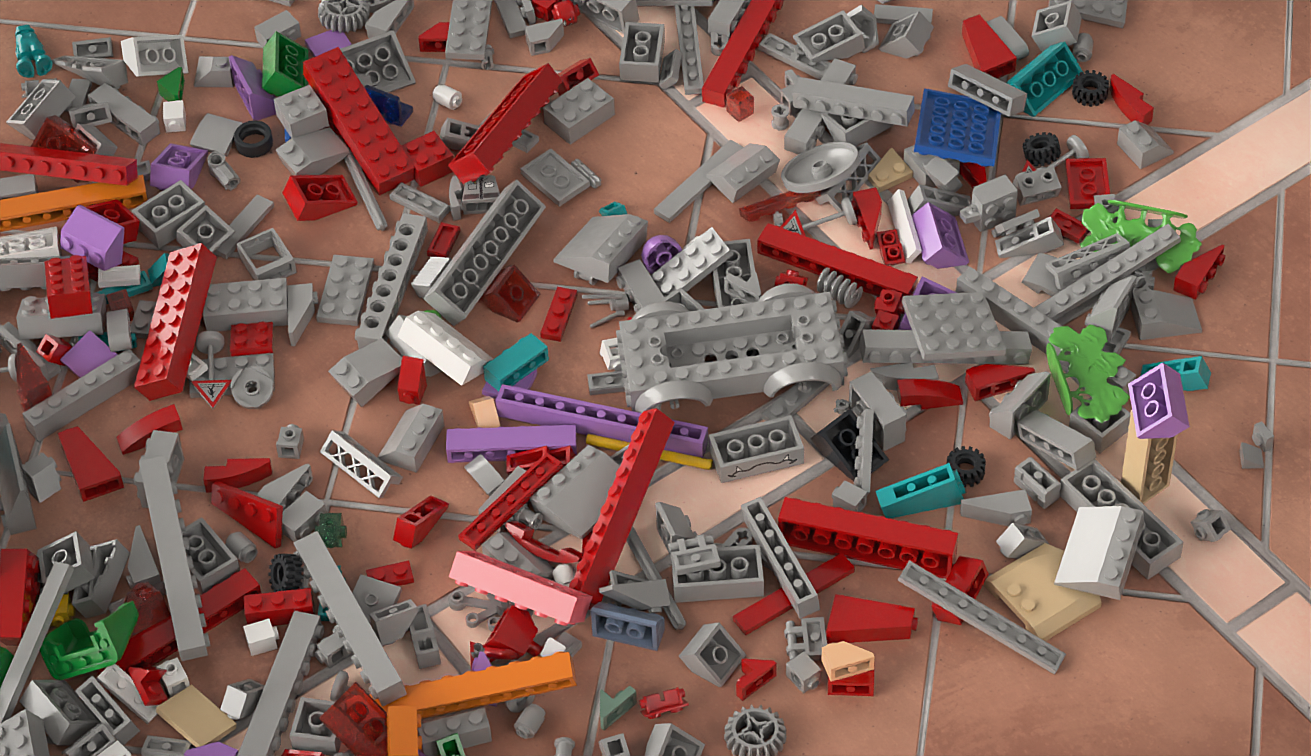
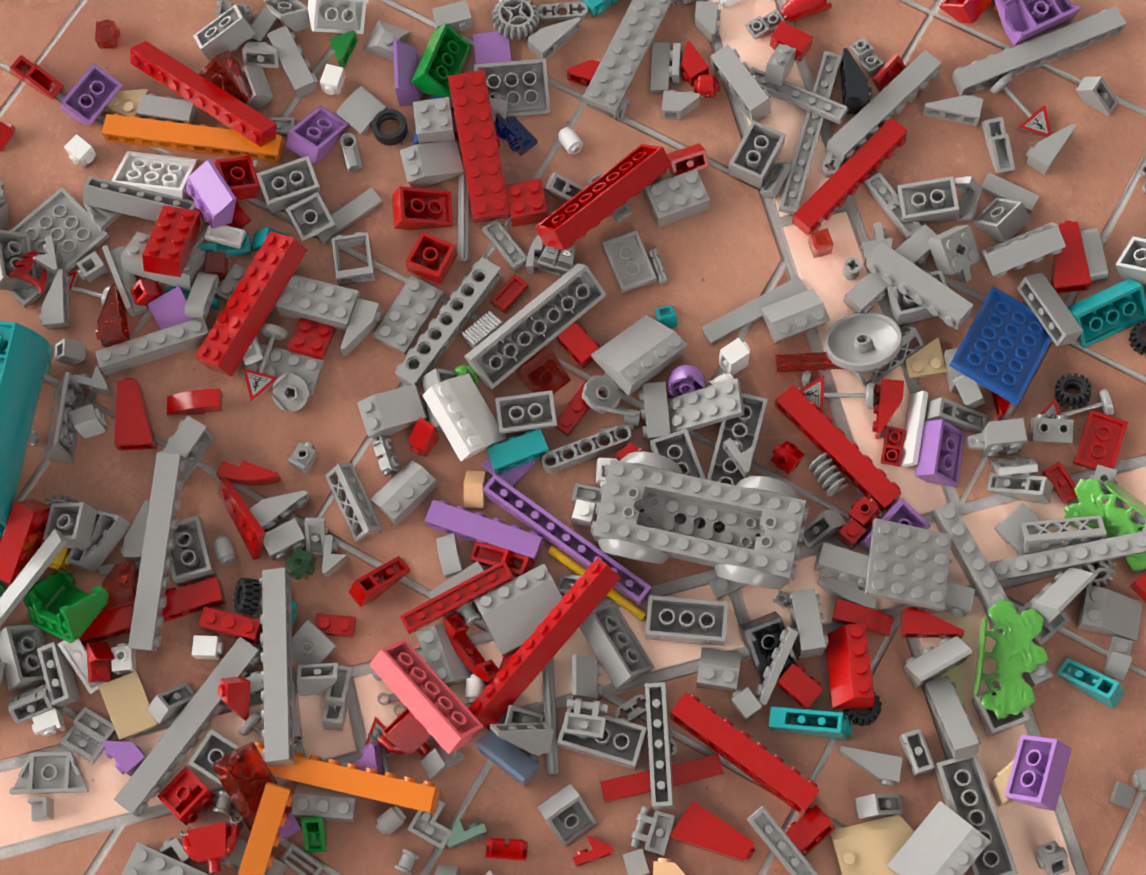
camera: 25 degrees right, 20 degrees up
(33, 446) = (96, 383): none -> light grey slope
(314, 663) = (236, 695): none -> red slope
(335, 498) = (315, 535): none -> light grey slope
(349, 231) = (431, 258): none -> red brick
(362, 517) = (332, 561): none -> light grey slope
(372, 407) = (384, 447): none -> light grey hinge
(508, 324) = (526, 412): none -> light grey slope
(535, 259) = (578, 344): none -> red brick
(568, 713) = (426, 827): none -> light grey plate
(570, 292) = (592, 397): none -> light grey plate
(583, 343) = (581, 456): none -> light grey beam
(608, 393) = (583, 513): none -> white brick
(693, 496) = (615, 645): none -> light grey slope
(699, 216) = (734, 357): none -> white brick
(809, 483) = (718, 670): none -> light grey slope
(874, 69) = (955, 252): none -> light grey hinge
(893, 465) = (798, 685): none -> red brick
(938, 46) = (1023, 248): none -> light grey brick
(938, 432) = (850, 667): none -> red slope
(1190, 344) = (1118, 658): none -> light grey slope

